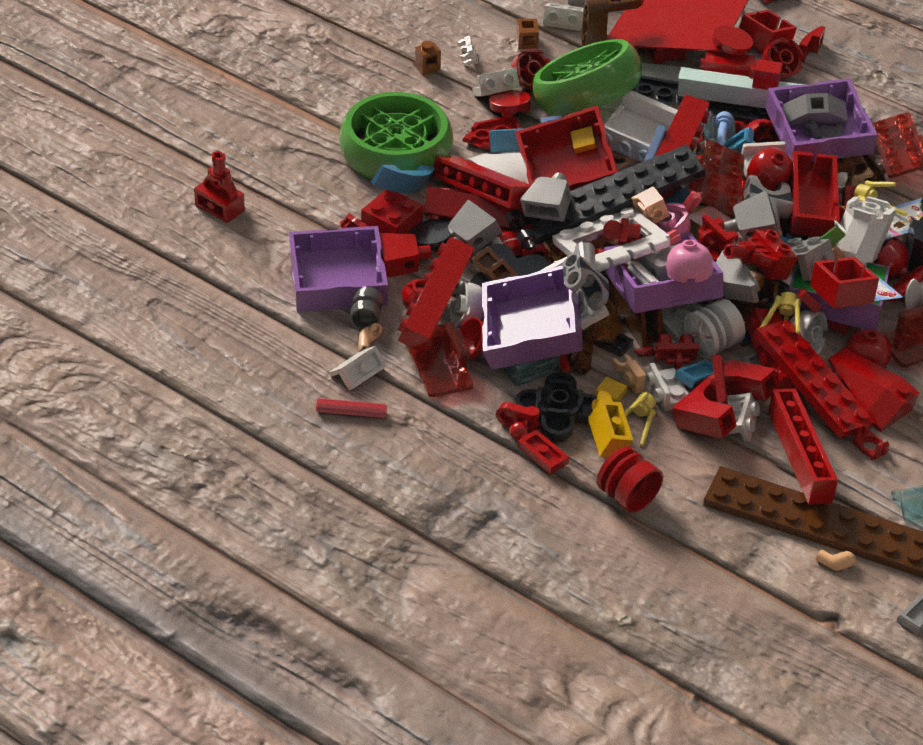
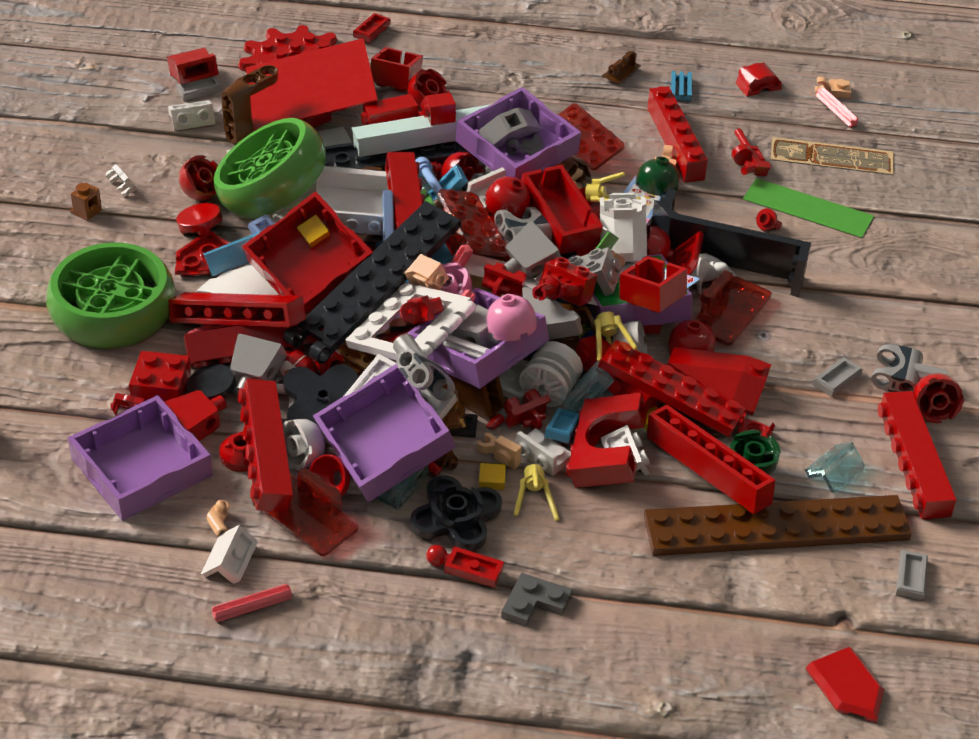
camera: 30 degrees left, 0 degrees up
(365, 307) = (199, 488): dark grey wheel -> none
(402, 181) = (152, 339): dark azure slope -> none
(492, 266) = (306, 396): reddish brown slope -> none
(496, 82) = (174, 203): white bracket -> none
(510, 413) = (420, 540): red plate -> none
(527, 33) = (169, 143): dark orange brick -> none
(547, 198) = (322, 303): light grey torso -> none
(576, 490) = (532, 593): none -> dark grey plate
(609, 425) = (522, 513): yellow brick -> none
(629, 479) = (581, 560): red wheel -> none
(718, 379) = (596, 425): red plate -> none
(732, 40) = (383, 85): red tile -> none
(740, 349) = (588, 387): none -> clear light blue panel
(795, 667) = (848, 683): none -> red tile
(809, 300) = (627, 313): red tile -> none
(812, 41) = (440, 61): red slope -> none
(838, 561) = (809, 560): light nougat arm -> none
(847, 457) = (757, 449): none -> dark green cylinder

